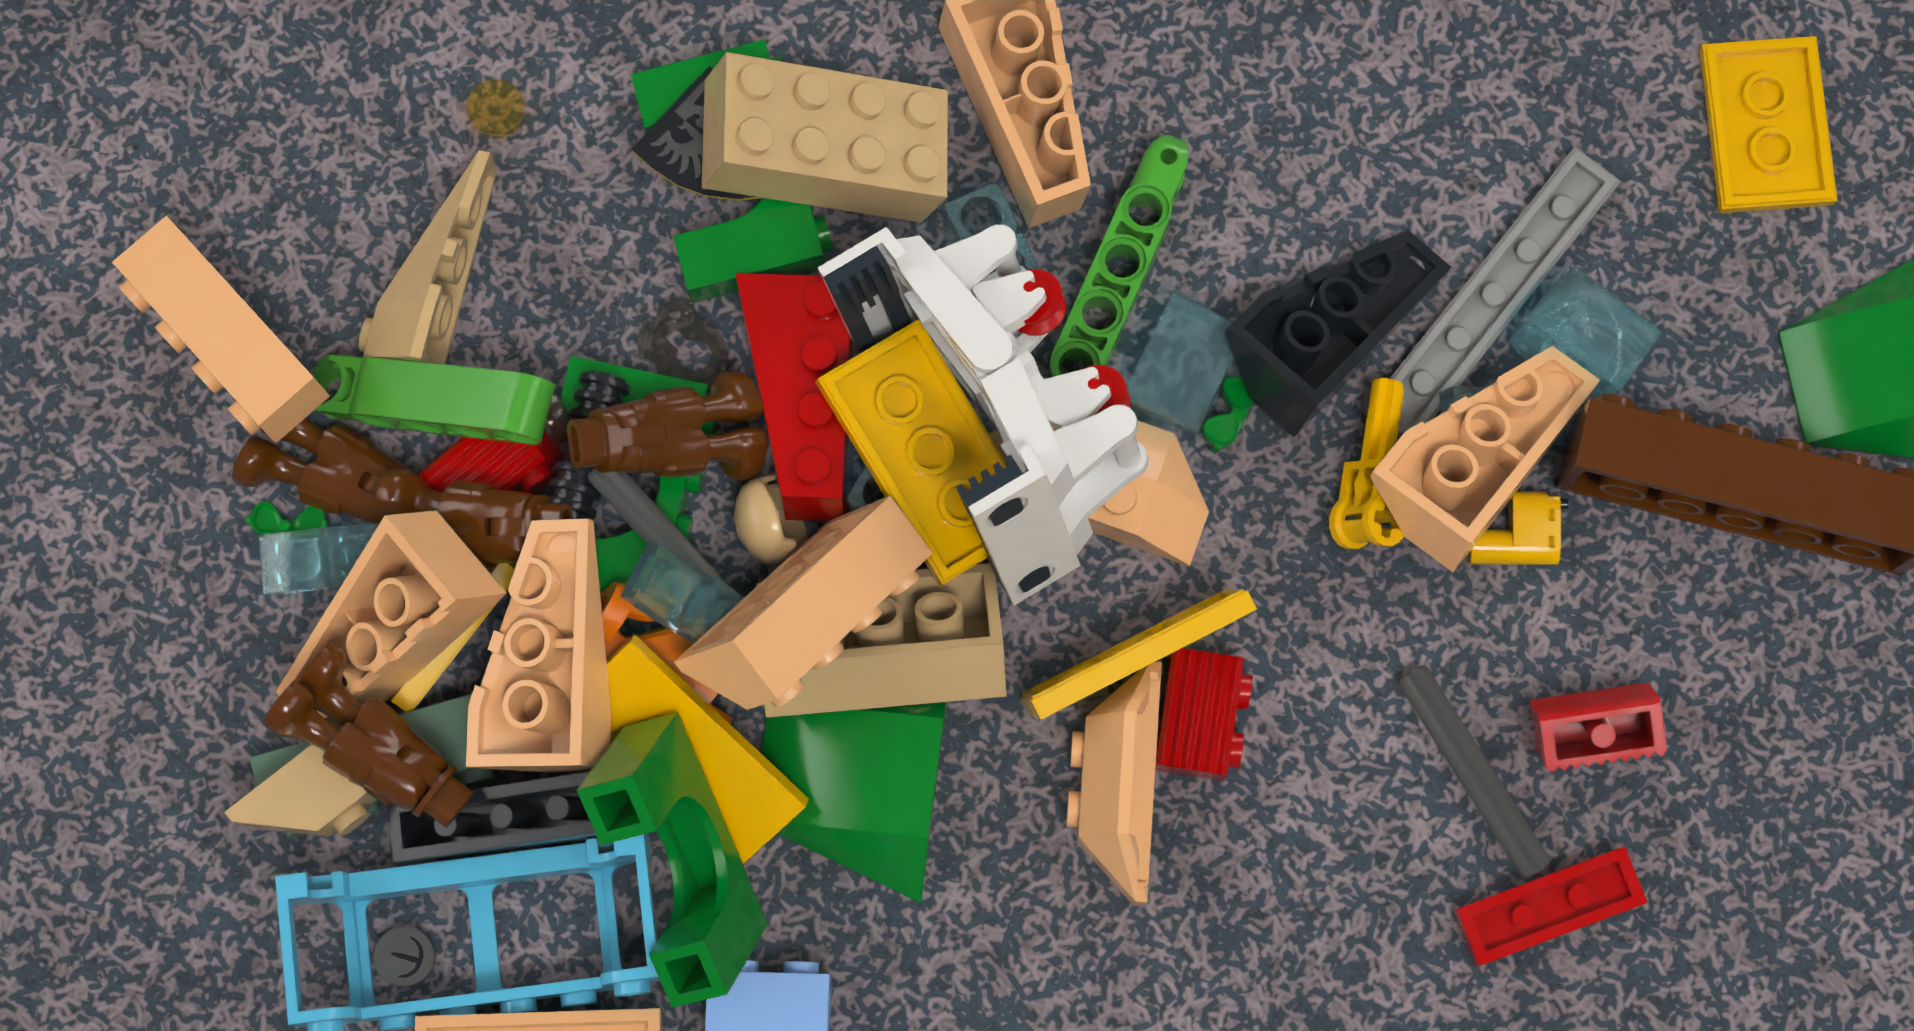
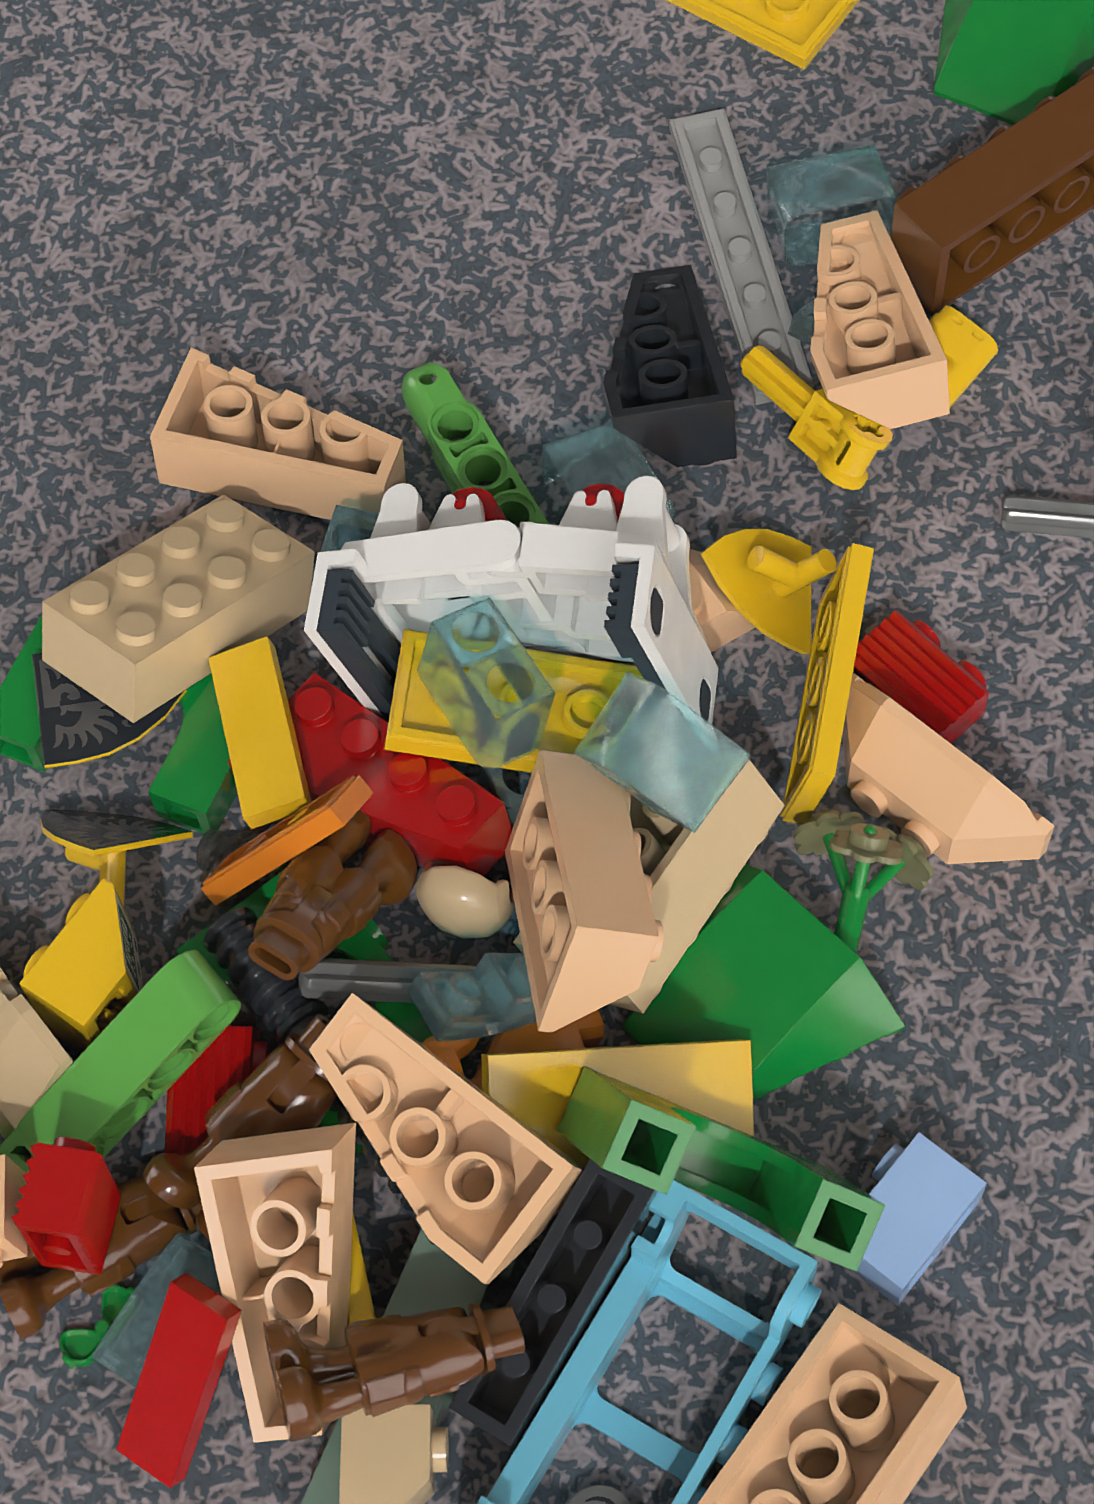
camera: 50 degrees left, 15 degrees down
(274, 609) = (178, 1379): none -> red tile
(321, 444) = (68, 1205): none -> red brick
(507, 317) = (86, 970): none -> yellow slope
(622, 232) = (103, 838): none -> shield
(696, 369) = (286, 839): none -> orange tile
(767, 280) = (259, 732): none -> yellow tile
(877, 466) = (446, 651): none -> clear light blue piece
(941, 587) = (661, 752): none -> clear light blue piece
(1013, 780) = (866, 843): none -> olive plant
(1199, 543) = (770, 581): none -> yellow shield
(1224, 428) = (685, 497): green piece -> none

